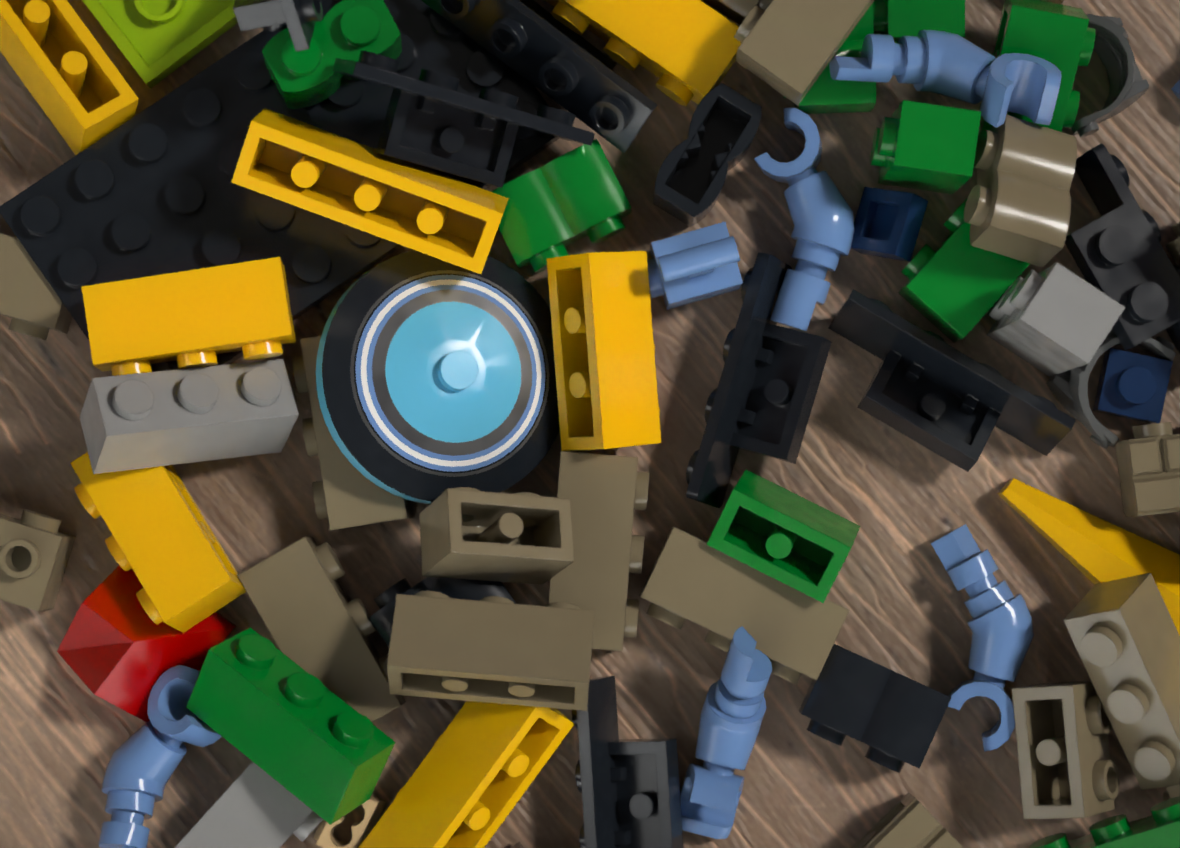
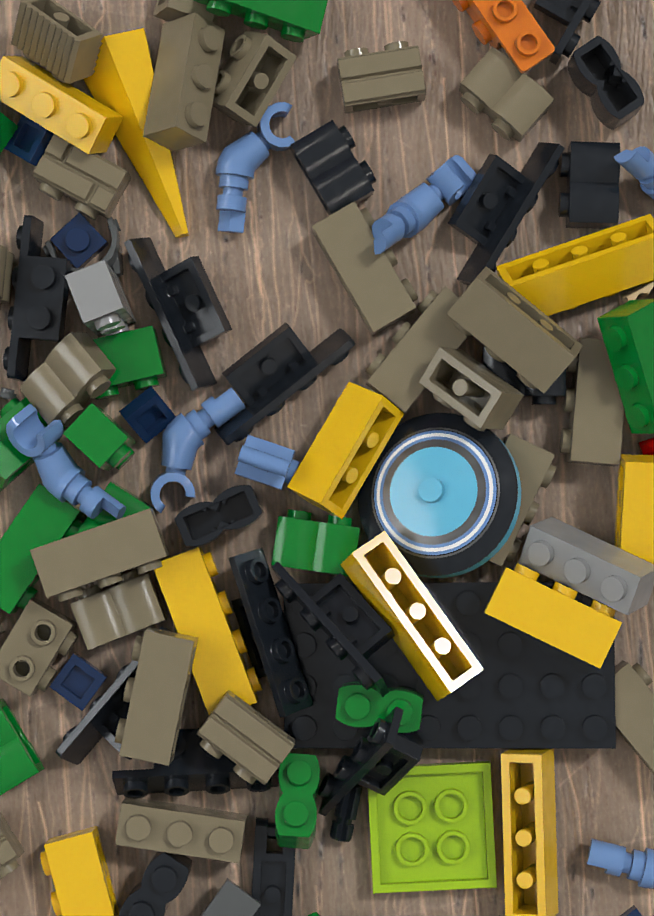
camera: 145 degrees left, 0 degrees up
(783, 535) = (318, 287): green brick -> none

